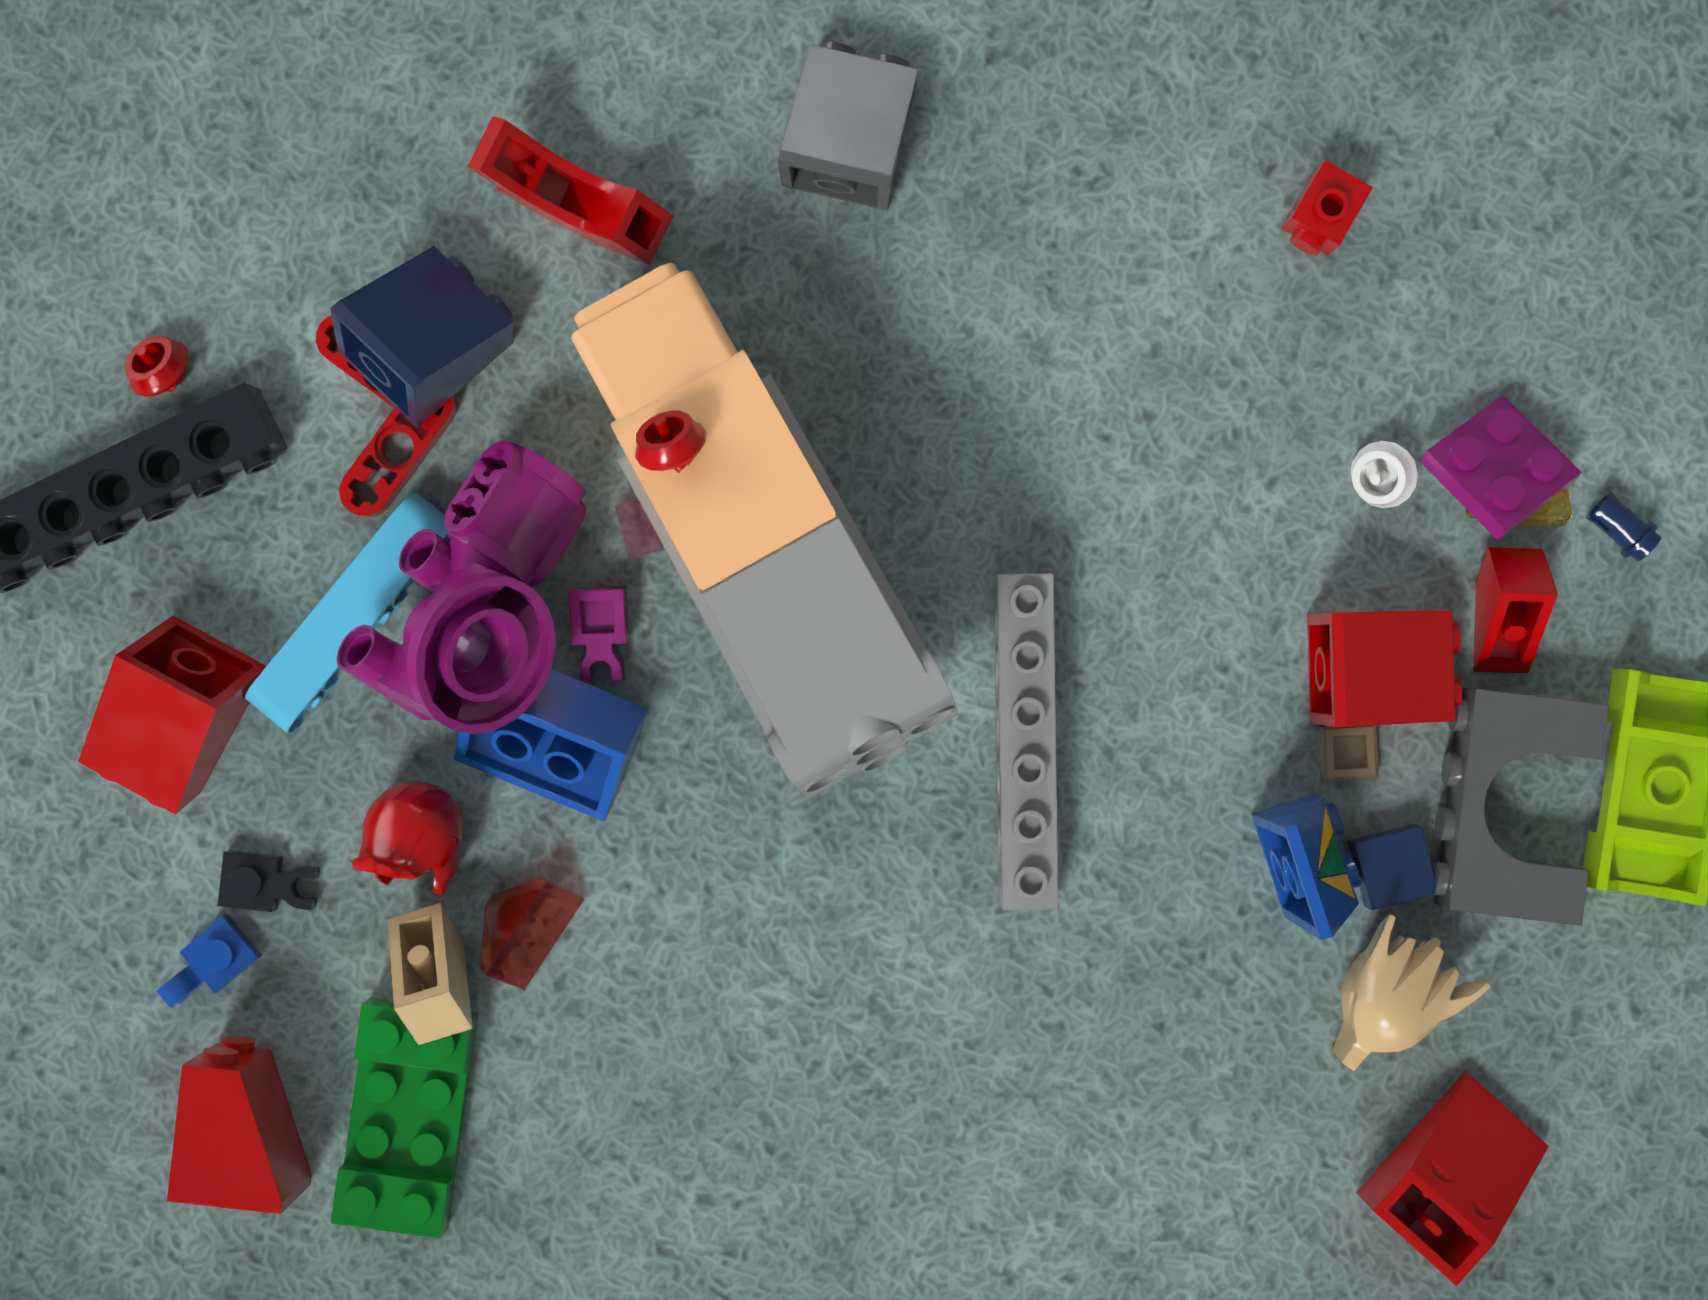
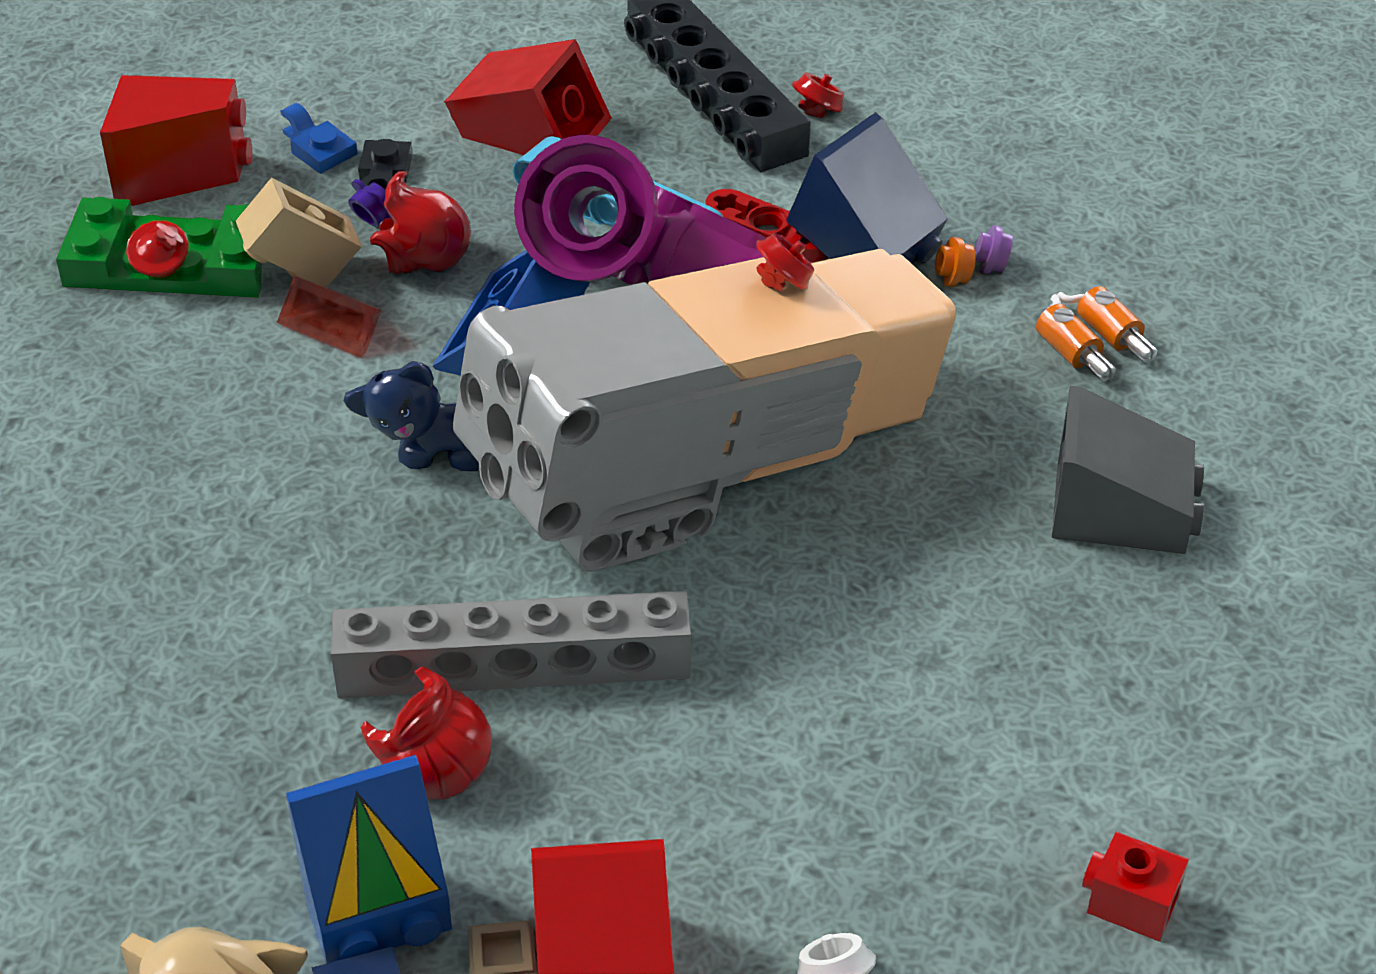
camera: 85 degrees right, 45 degrees down
(342, 895) = (369, 203): none -> dark purple plate
(437, 1128) = (157, 248): none -> red hat
(462, 201) = (993, 250): none -> medium lavender plate
(482, 246) = (955, 262): none -> orange plate
(569, 195) = (1008, 317): red arch -> none
(587, 91) = (1107, 317): none -> orange piece
(728, 835) = (409, 409): none -> dark blue animal
(1141, 815) = (442, 731): none -> red hair

